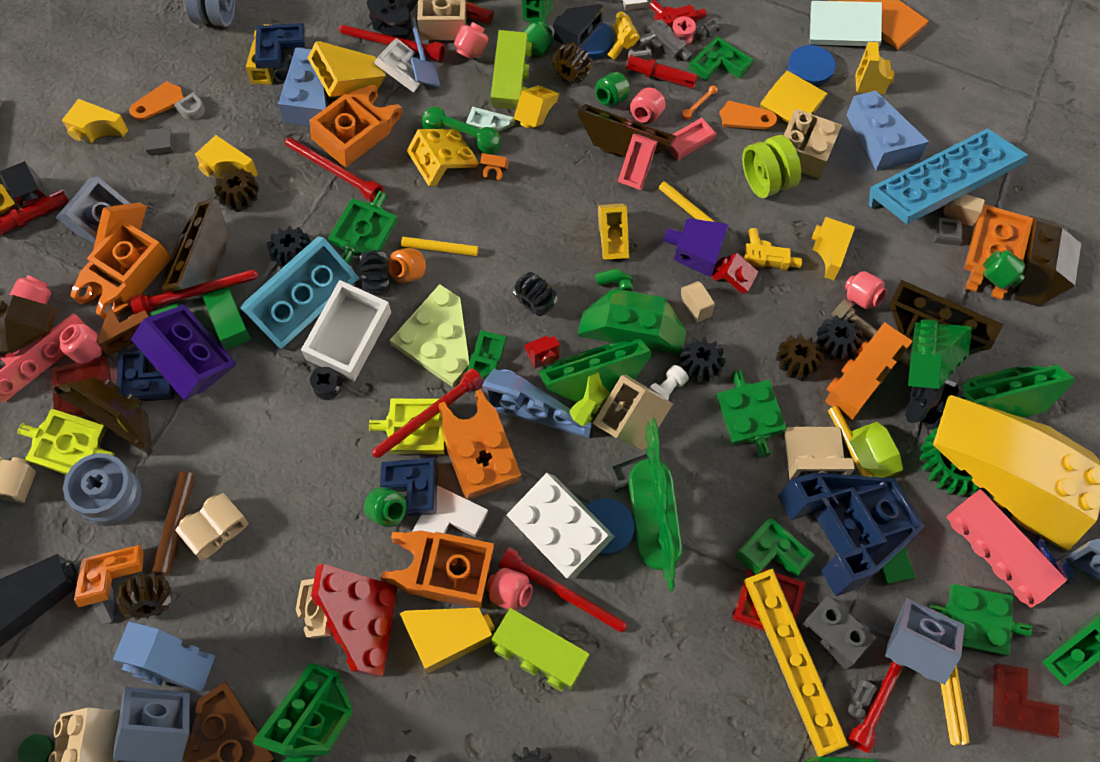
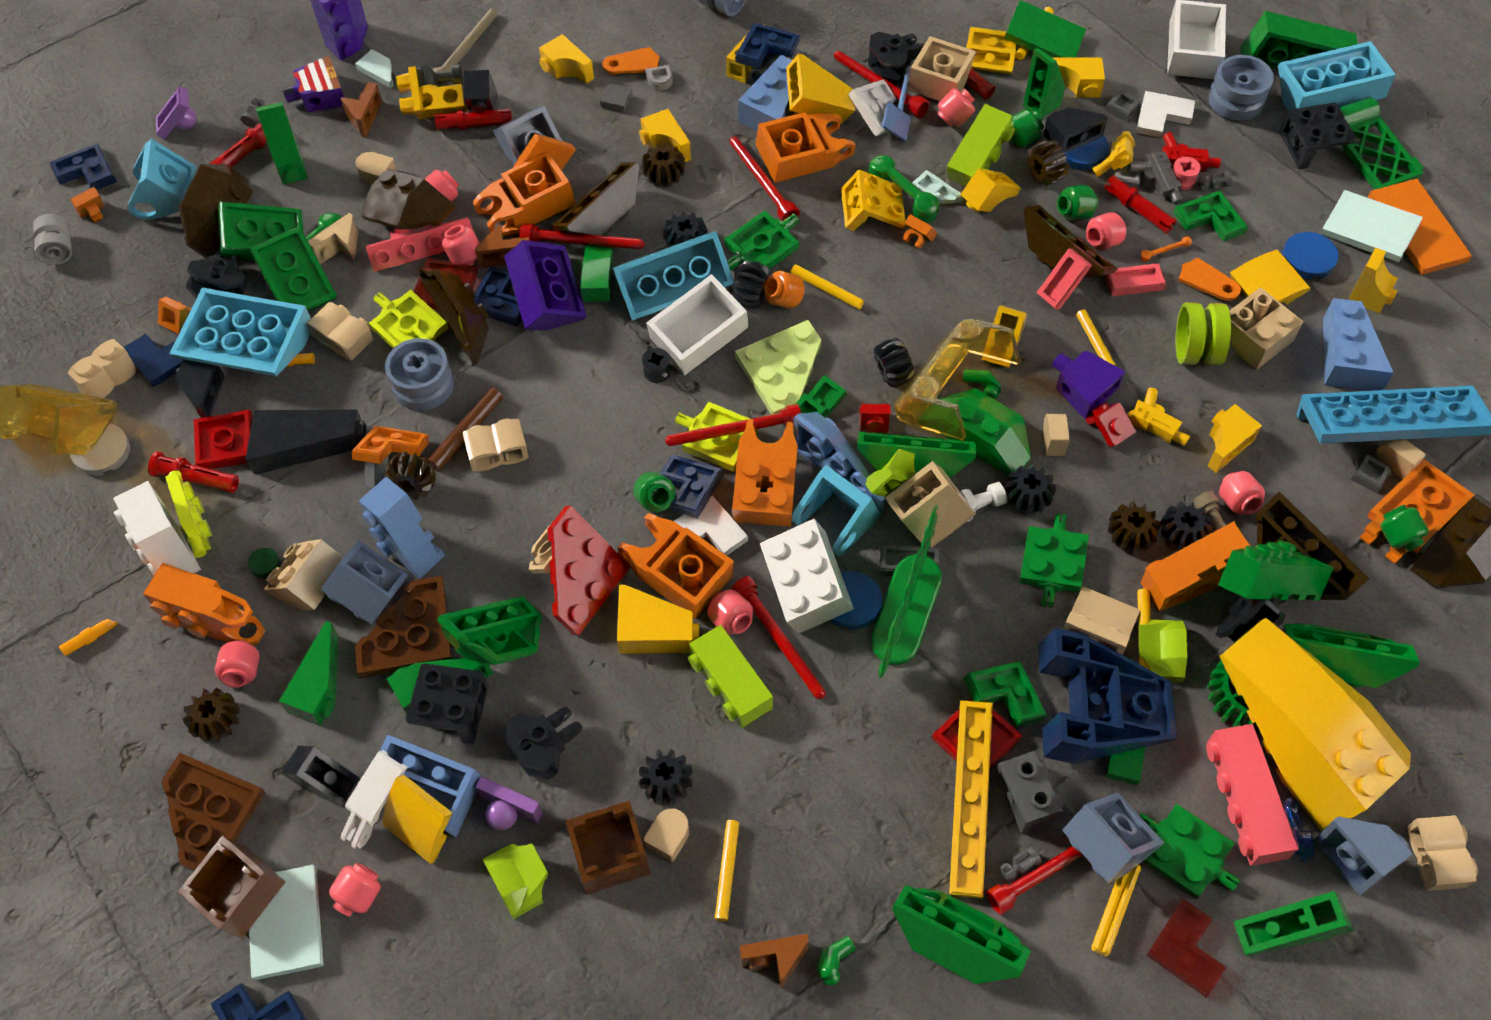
camera: 30 degrees right, 5 degrees down
(541, 428) = (829, 483): none -> medium azure hose
(573, 314) = (918, 401): none -> clear yellow windscreen

